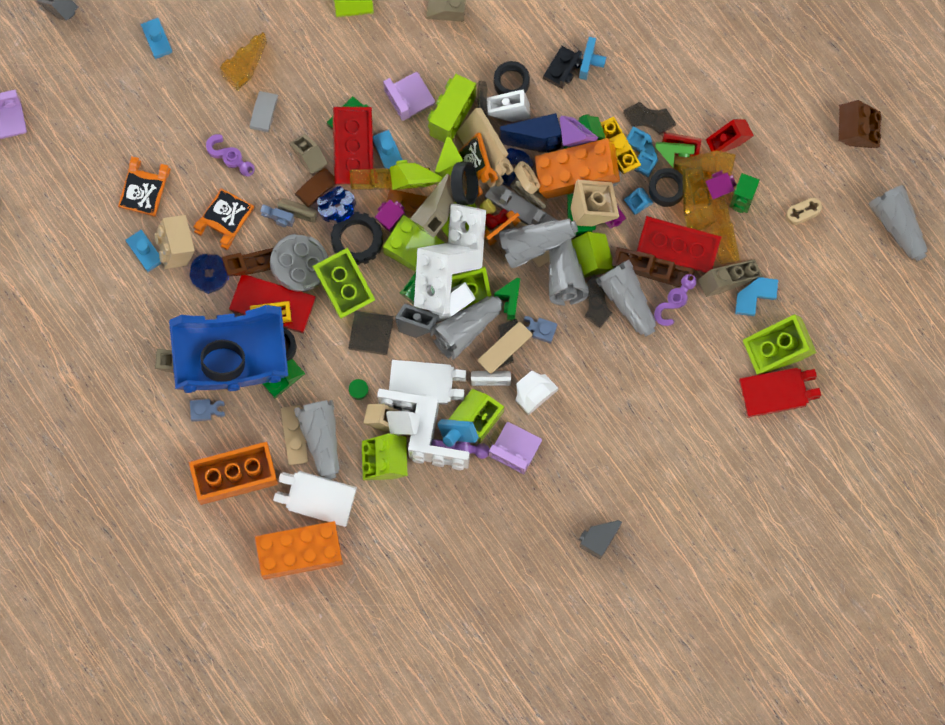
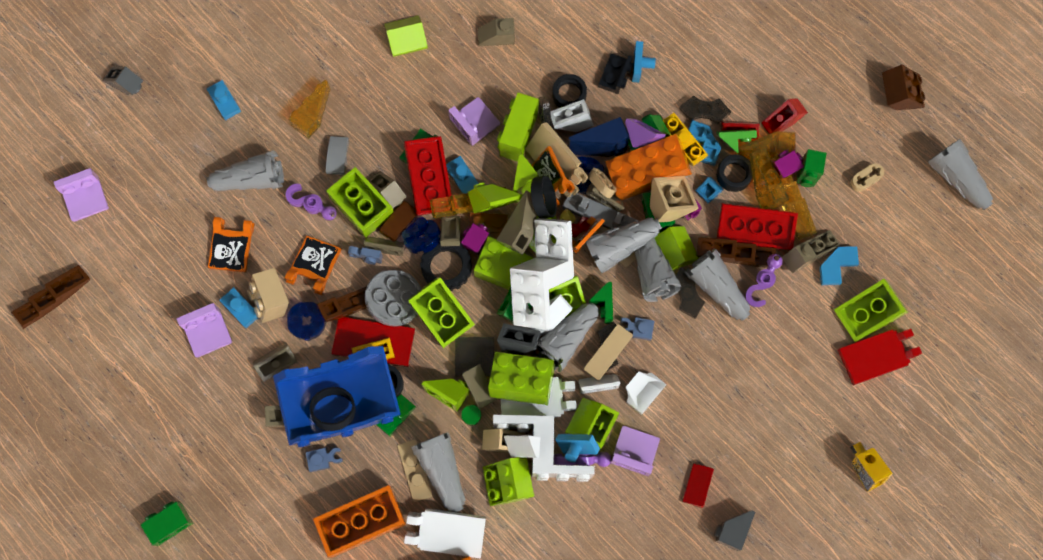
camera: 10 degrees left, 0 degrees up
(45, 447) = (166, 523): none -> green brick
(108, 267) = (205, 330): none -> lavender bracket
(171, 308) = (274, 362): none -> dark tan slope
(178, 117) = (256, 172): none -> light grey cone
(280, 162) = (360, 202): none -> lime brick
(338, 362) = (447, 391): none -> lime slope
(366, 204) = (450, 231): none -> dark tan tile
(370, 362) = (478, 385): none -> dark tan slope
(413, 359) = (521, 378): none -> lime brick
(572, 490) = (698, 485): none -> red slope
(745, 497) = (869, 467): none -> yellow torso

